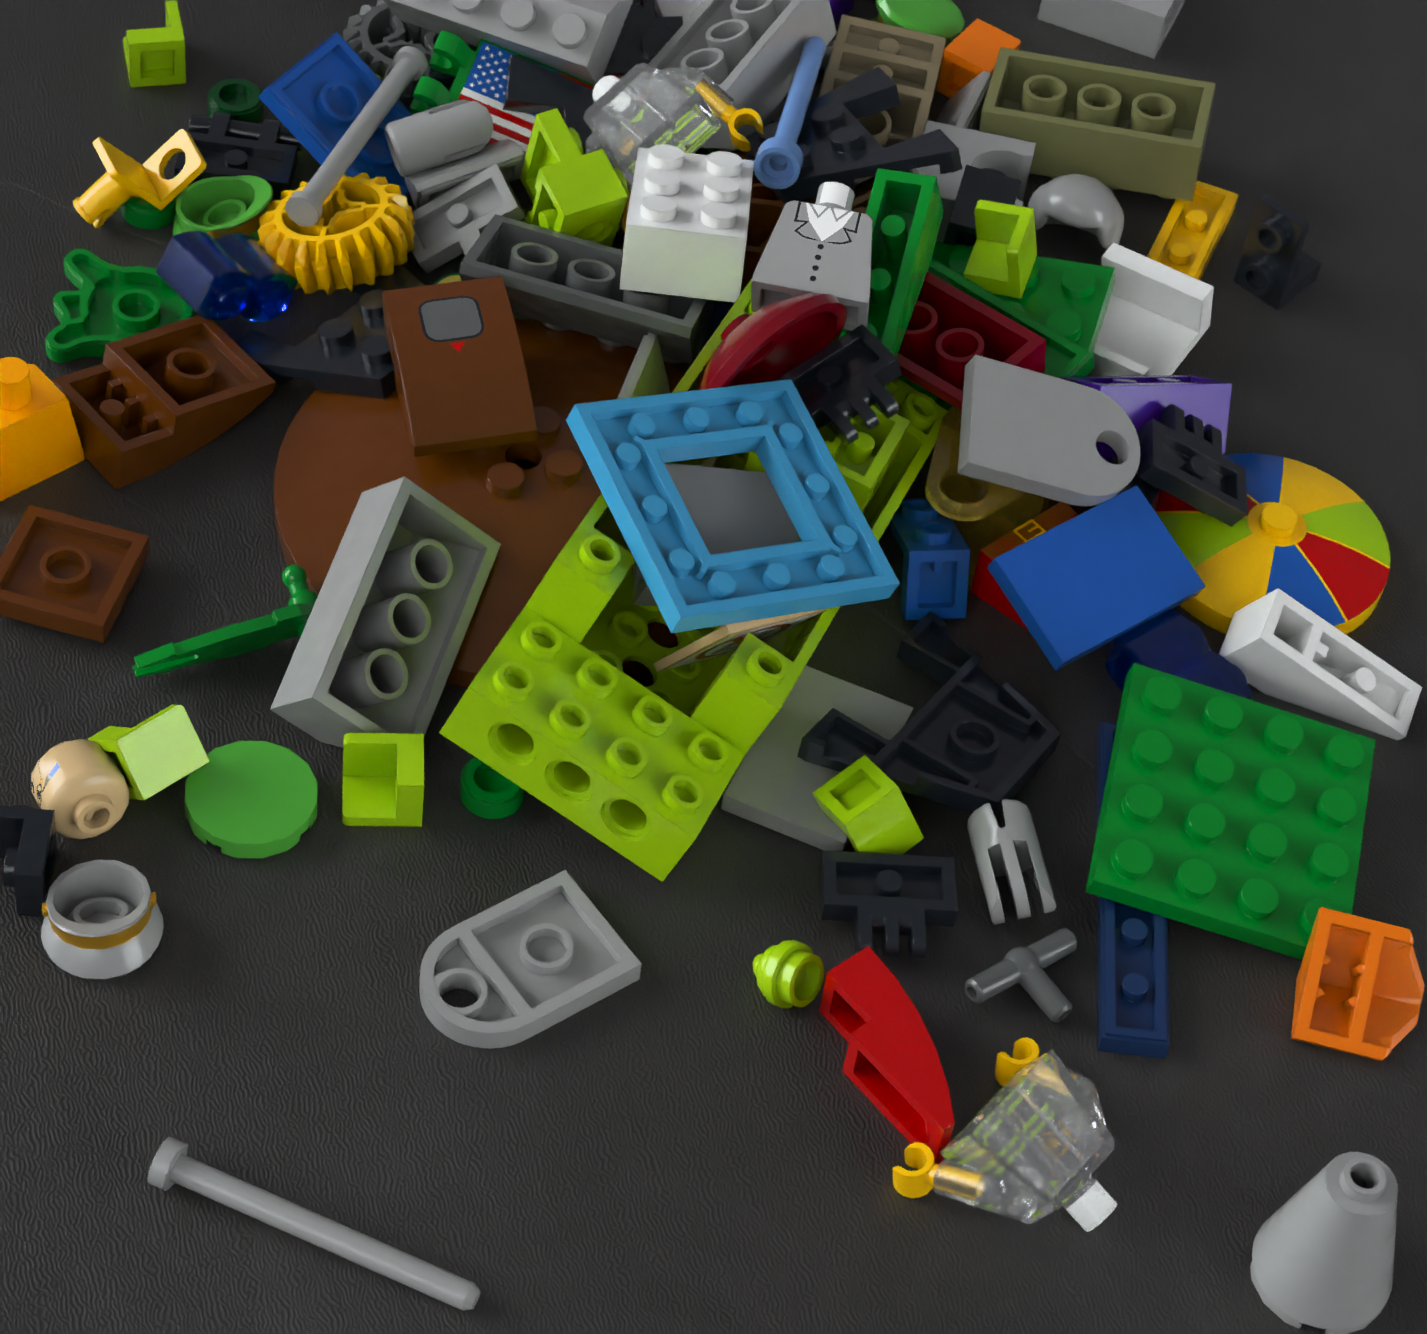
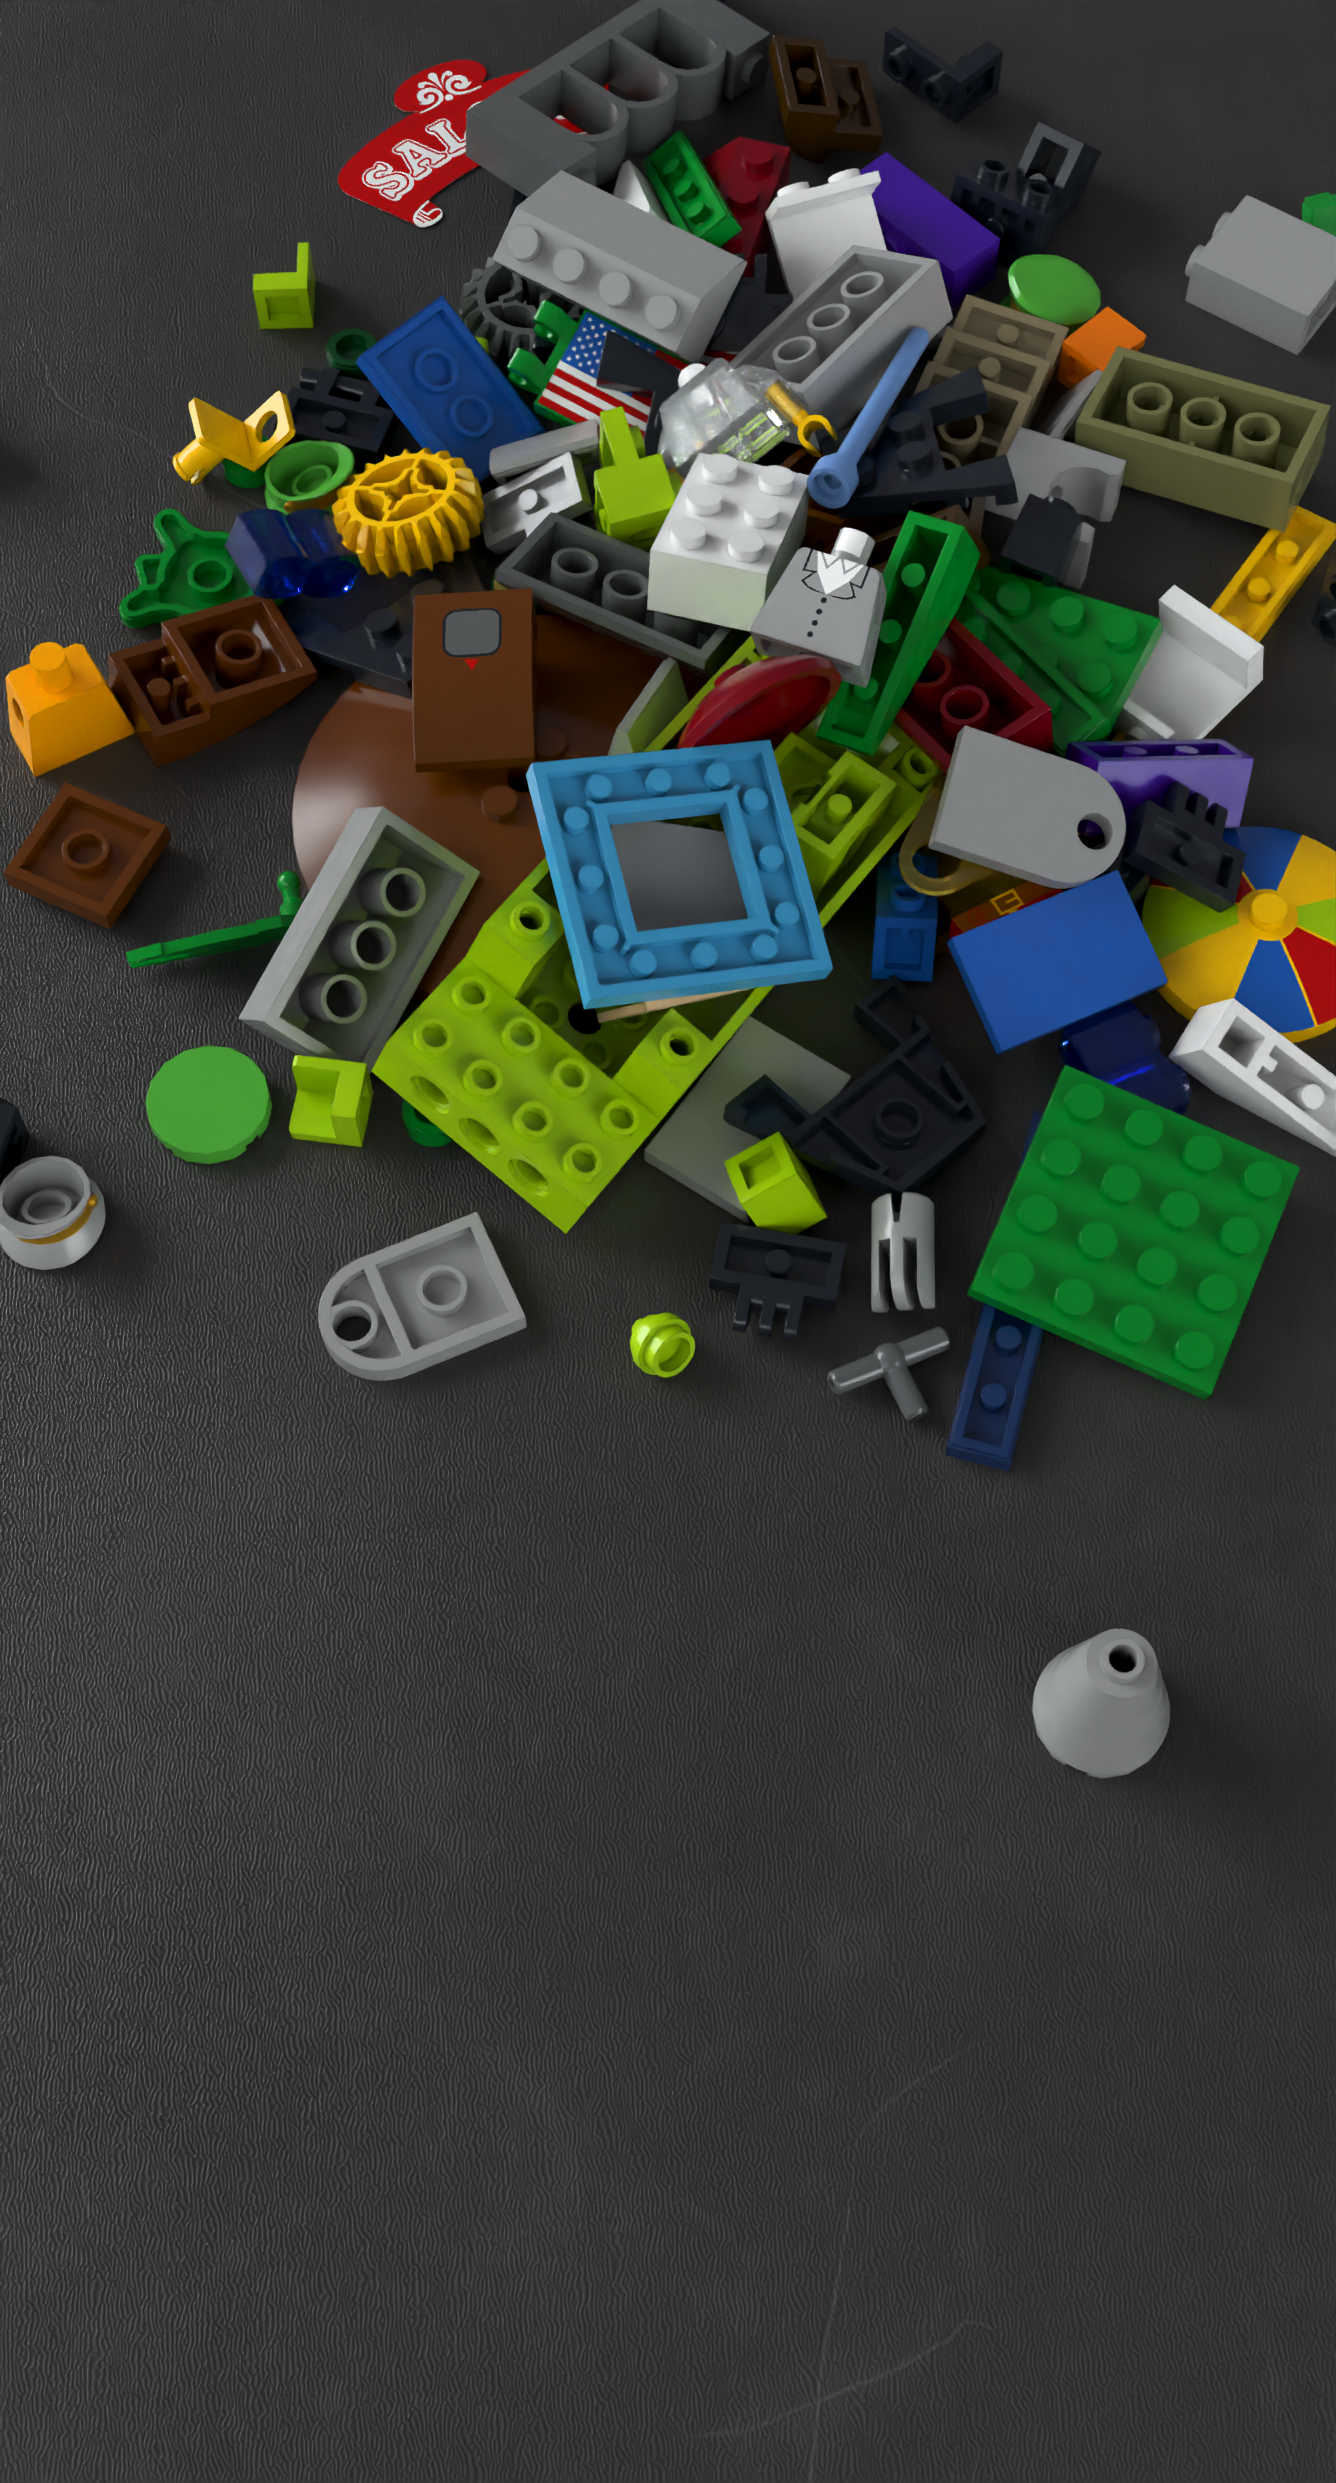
camera: 20 degrees right, 15 degrees up
(80, 785) = (53, 1078): tan head -> none
(154, 751) = (119, 1054): lime panel -> none
(174, 1166) = (61, 1464): light grey bar -> none
(306, 205) = (373, 487): light grey bar -> none
(438, 136) = (523, 414): light grey arm -> none
(846, 382) = (827, 744): black hinge -> none
(889, 1049) = (734, 1434): red slope -> none
(1003, 248) = (1046, 594): lime panel -> none
(1024, 1147) = (838, 1553): clear torso -> none
(1079, 203) = (1160, 533): light grey hair -> none
(1357, 986) = (1214, 1427): orange slope -> none

